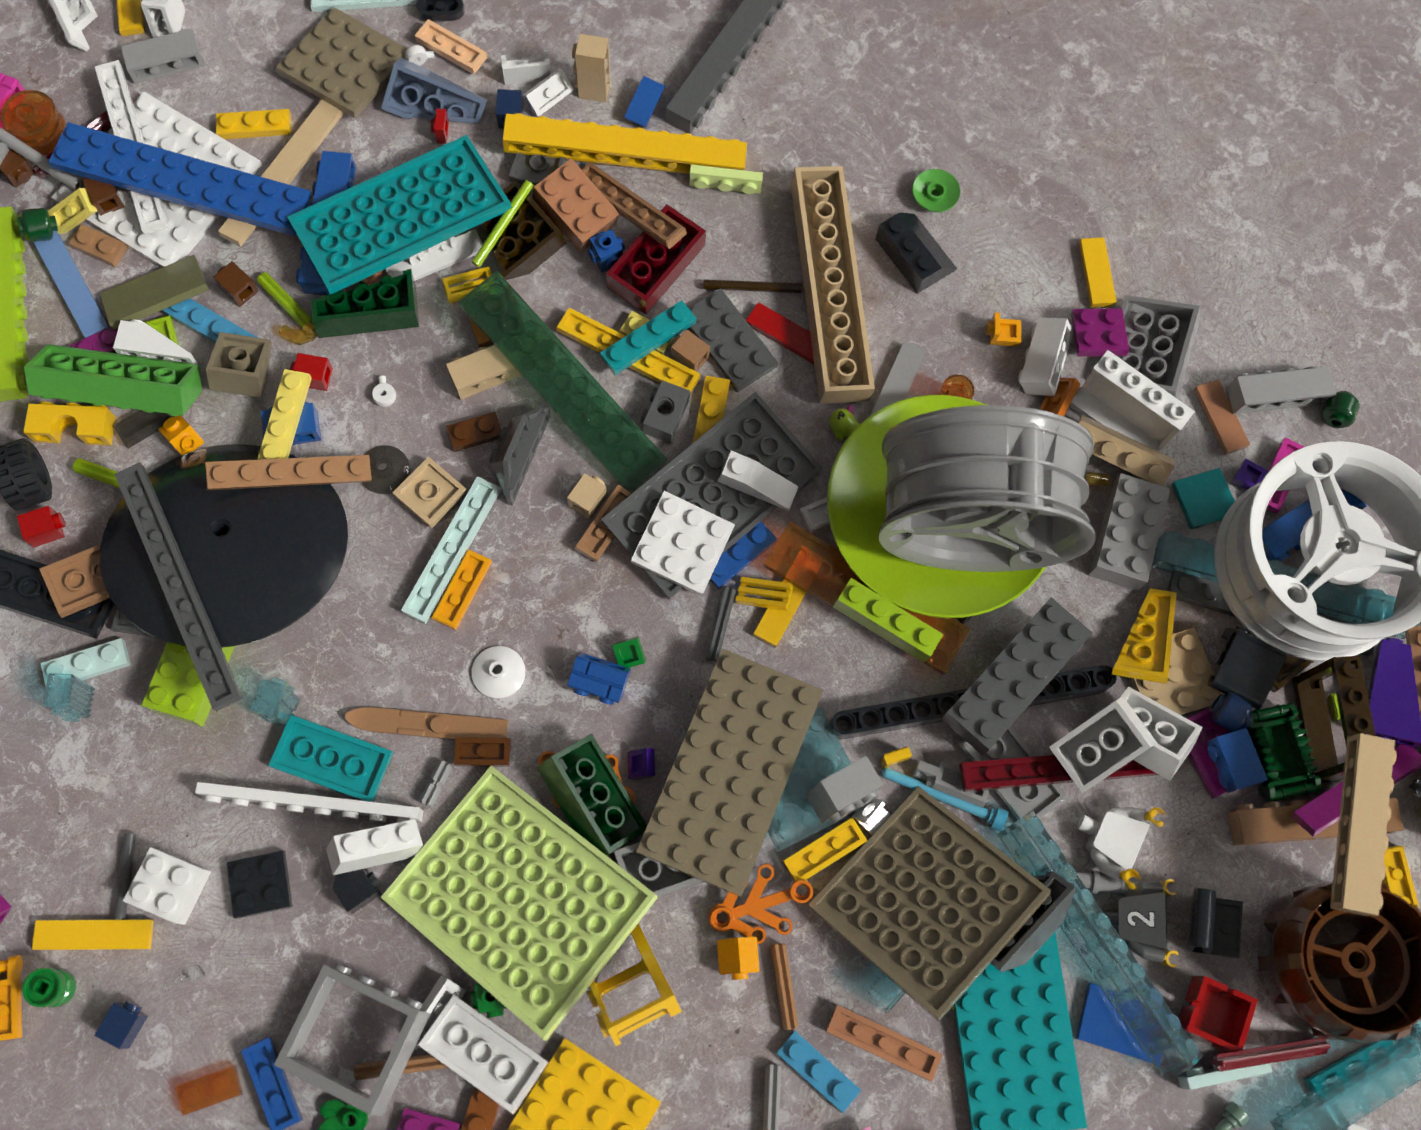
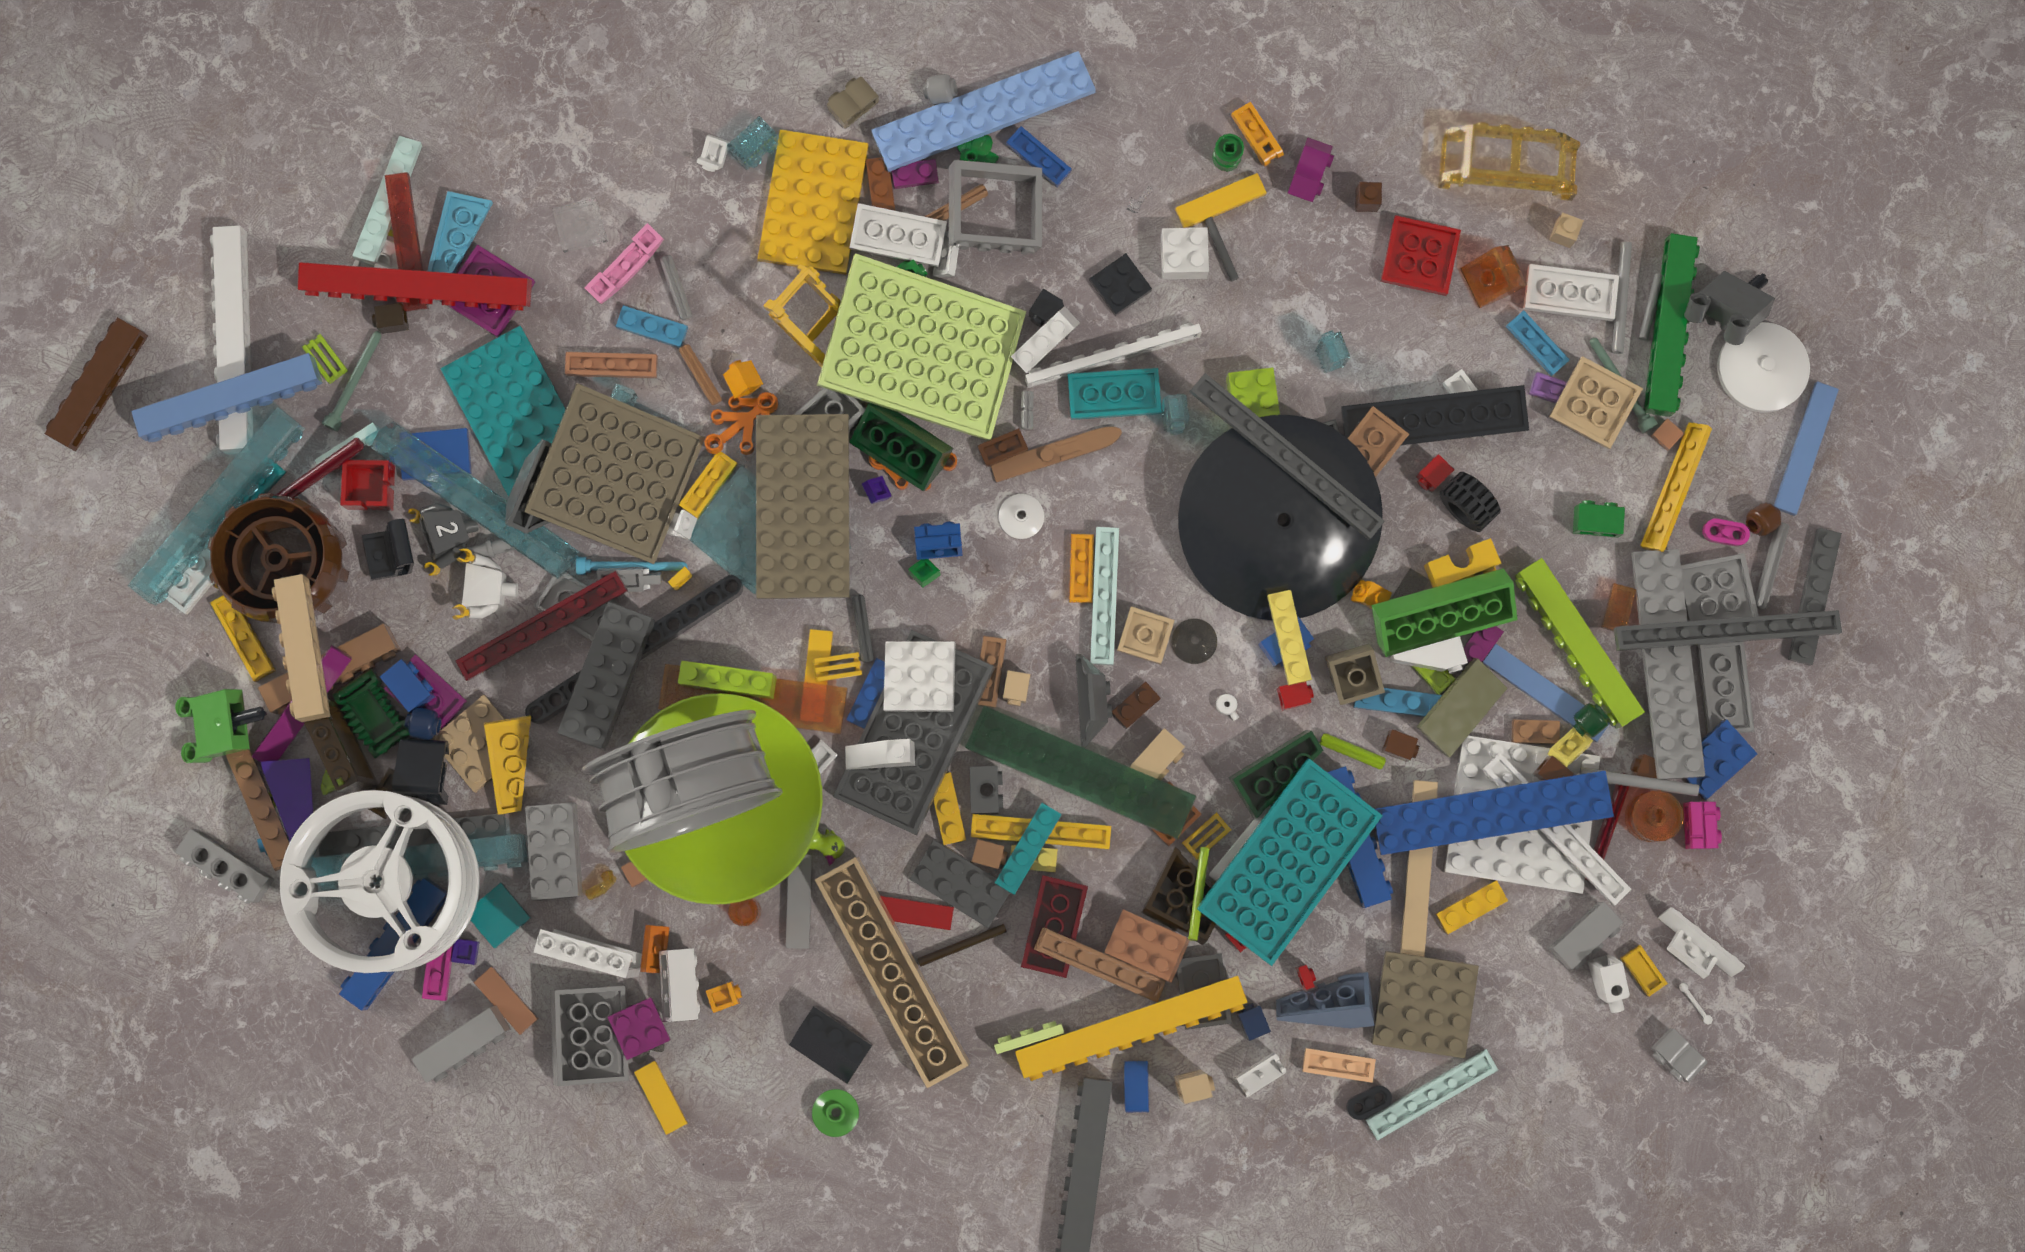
camera: 160 degrees right, 10 degrees up
(90, 661) = (1339, 385): light aqua plate -> none
(95, 471) = (1410, 537): lime axle -> none
(121, 1024) = (1164, 151): dark blue brick -> none
(209, 1090) = (1081, 136): clear orange plate -> none
(287, 472) = (1260, 593): medium nougat plate -> none
(299, 337) = (1322, 723): clear yellow arm -> none
(418, 55) = (1363, 1042): white piece -> none
(548, 92) = (1227, 1056): white plate -> none
(606, 249) = (1093, 912): blue brick -> none
(845, 791) = (708, 525): light grey brick -> none
(1102, 744) = (519, 642): white brick -> none
(1128, 453) = (585, 921): tan brick -> none
(1171, 731) = (485, 677): white brick -> none
(1341, 410) = (402, 1050): dark green head -> none

